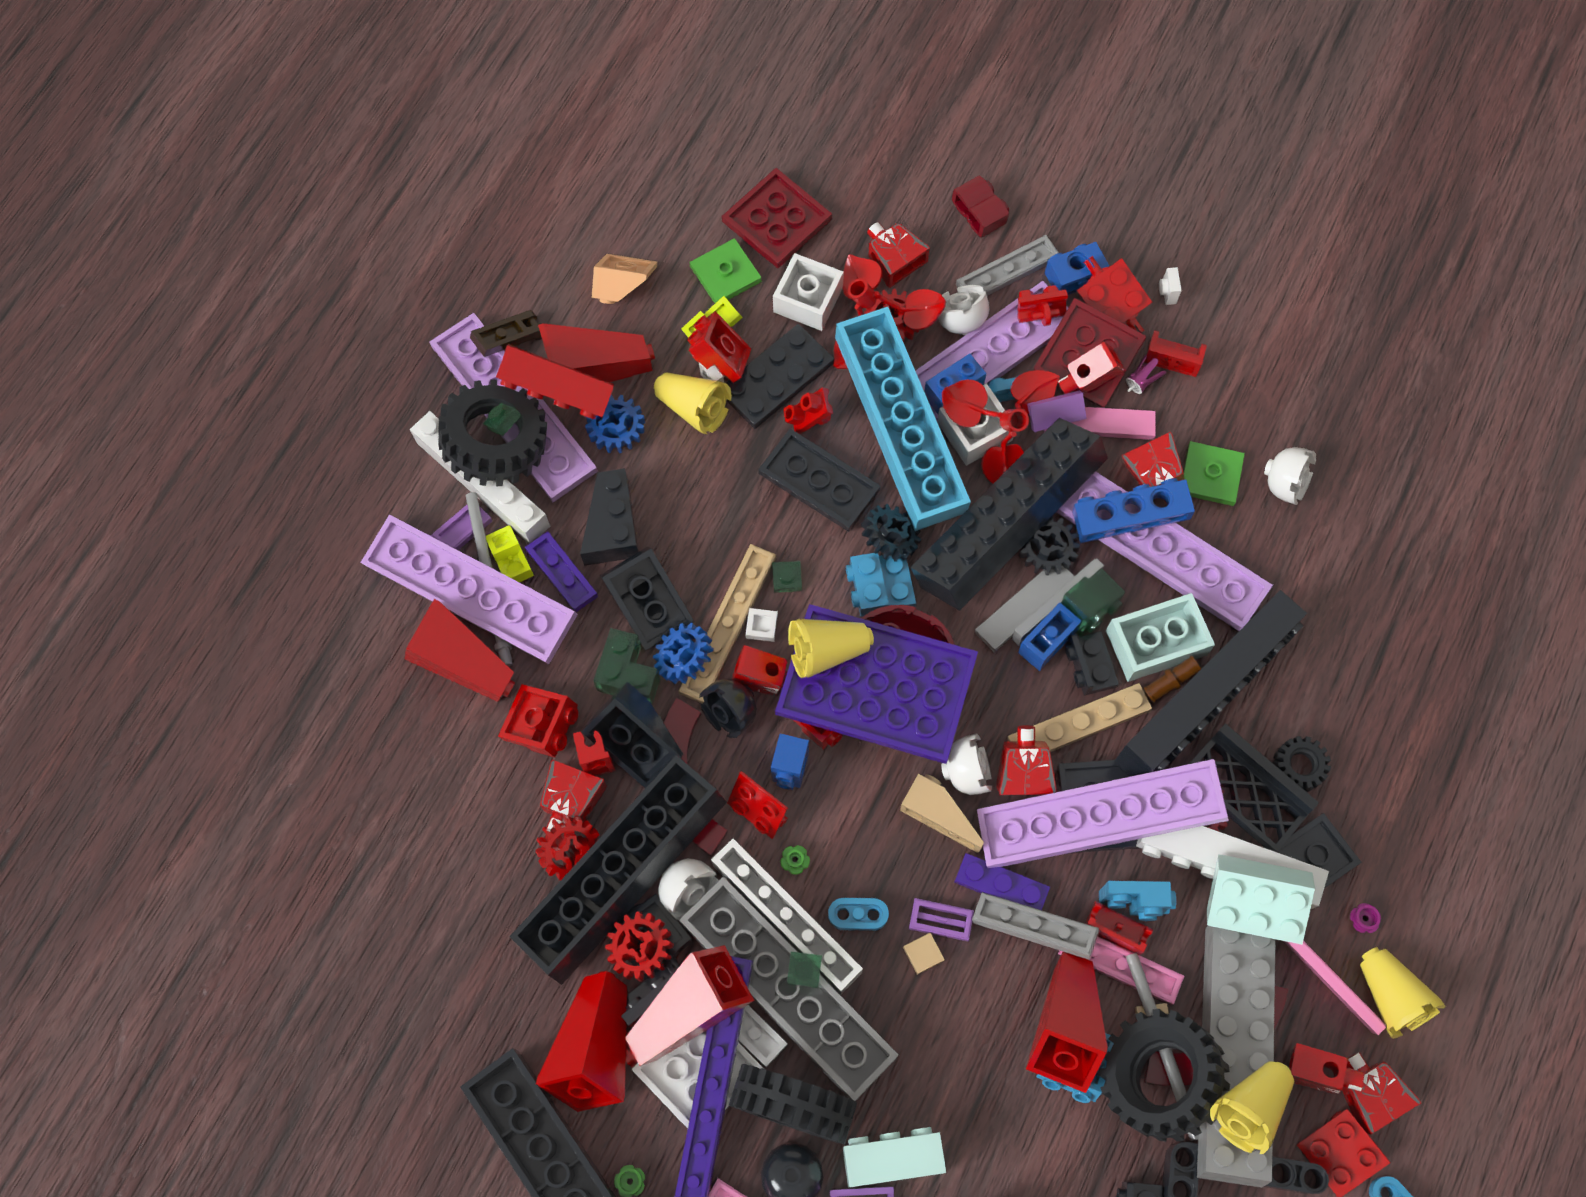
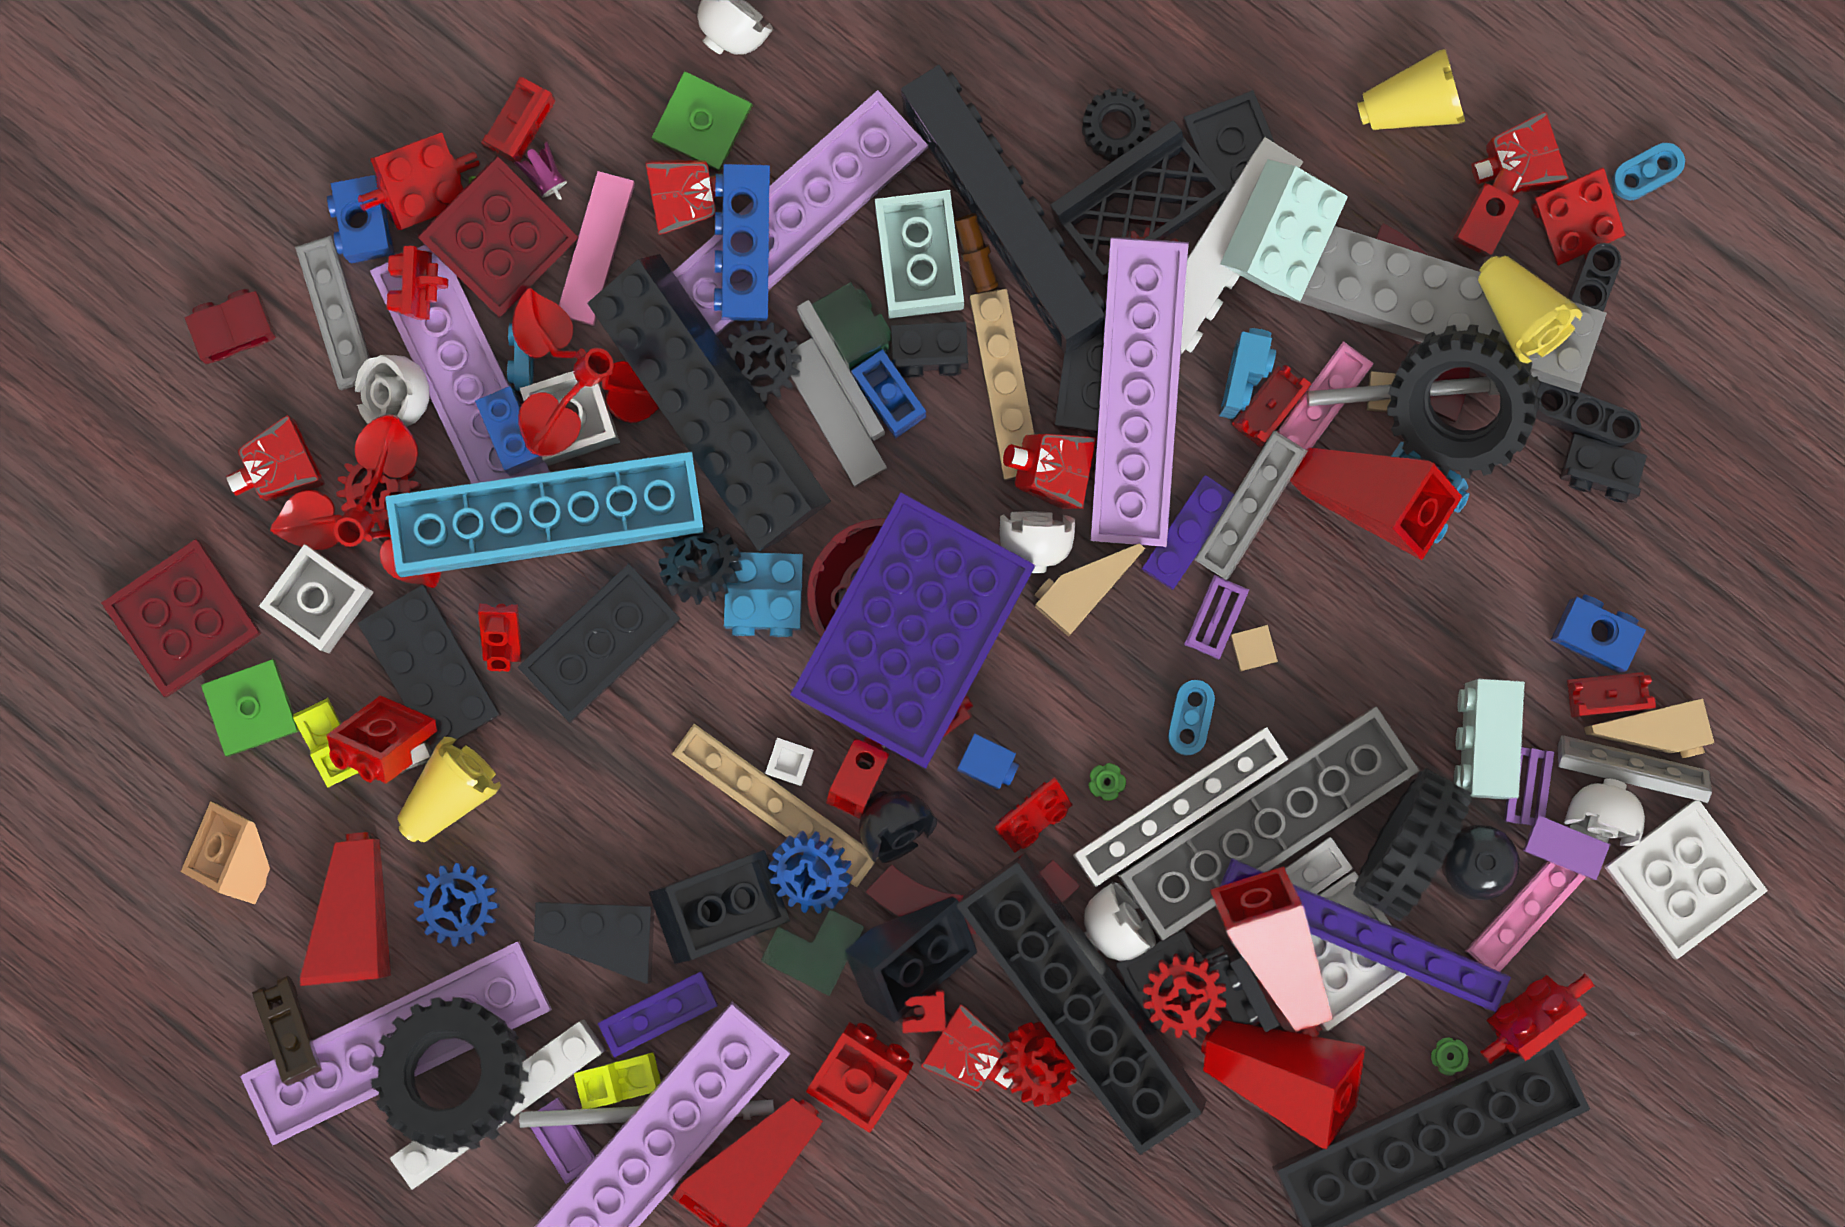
camera: 80 degrees left, 15 degrees up
(501, 419) = (442, 1057): clear green plate -> none
(555, 381) = (397, 976): red brick -> none
(787, 576) = (727, 714): clear green plate -> none
(804, 970) = (1258, 798): clear green plate -> none
(826, 644) = (858, 684): light yellow cone -> none
(1047, 411) = (572, 293): medium lavender tile -> none
(1103, 366) = (528, 229): torso -> none
(1170, 286) = (416, 98): white plate -> none
(1338, 987) = (1398, 161): bright pink tile -> none
(1371, 913) = (1321, 96): magenta plate -> none

